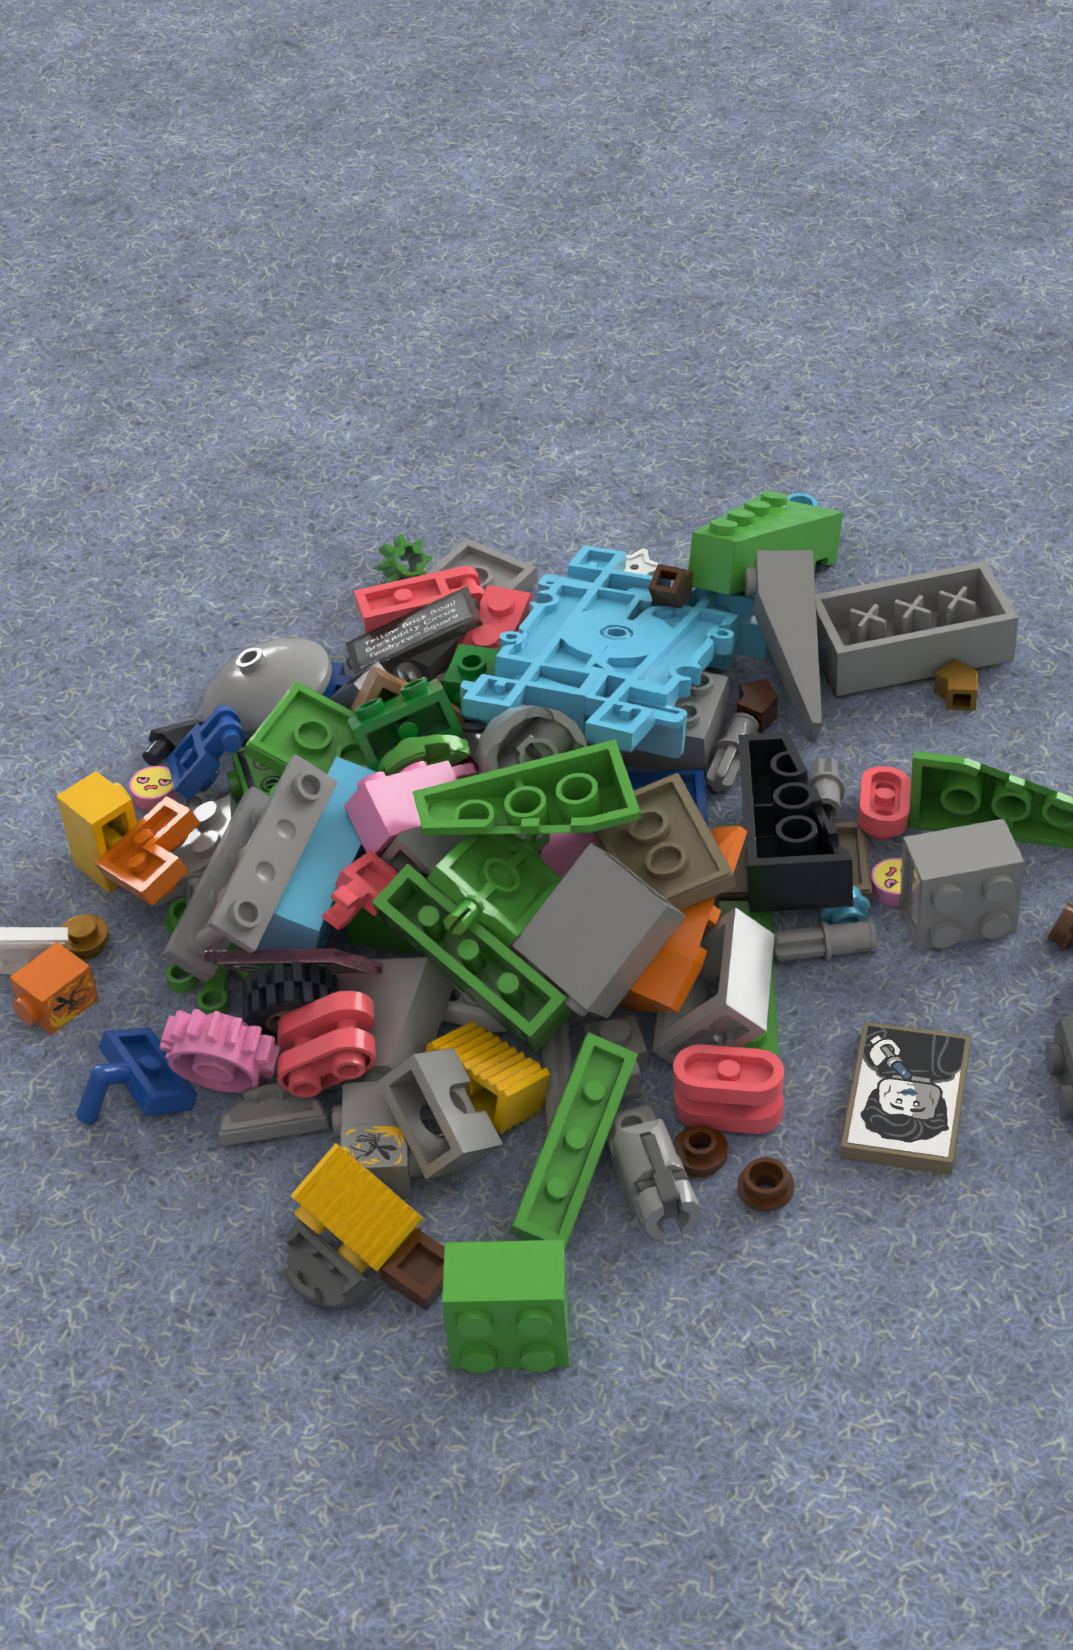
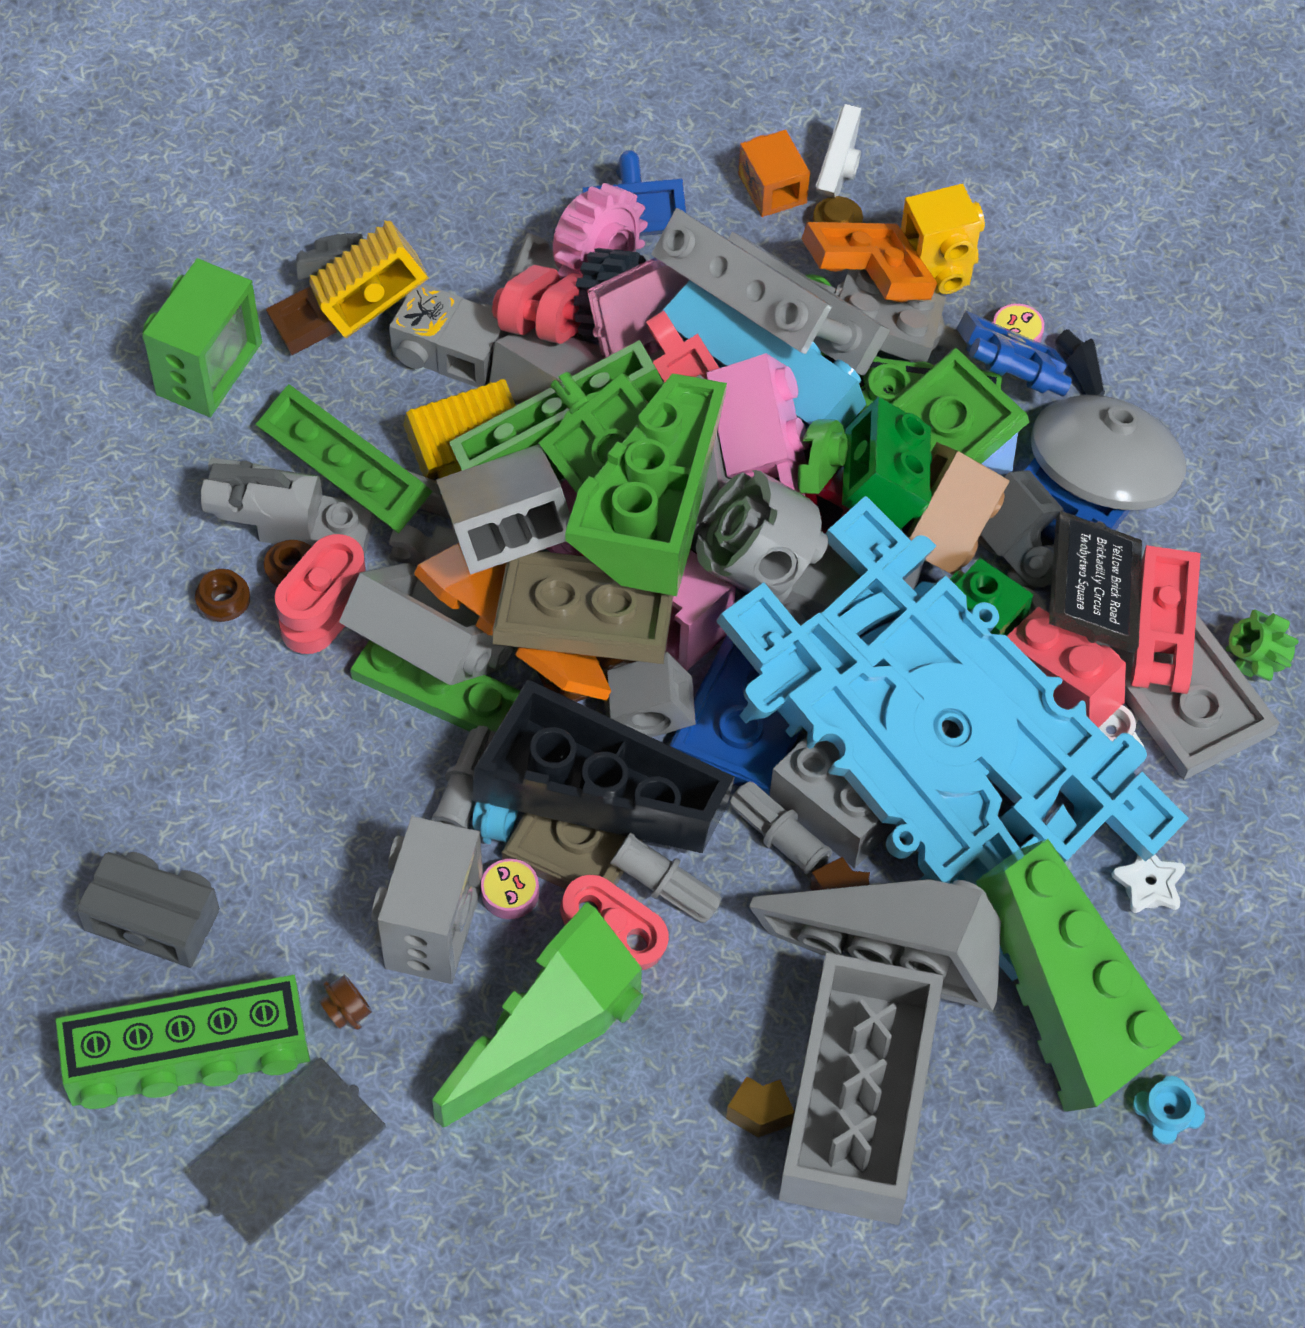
camera: 110 degrees right, 15 degrees up
(439, 1083) = (397, 372): light grey brick -> none
(680, 591) = (1009, 818): piece -> none
(906, 1098) = (245, 755): tile -> none

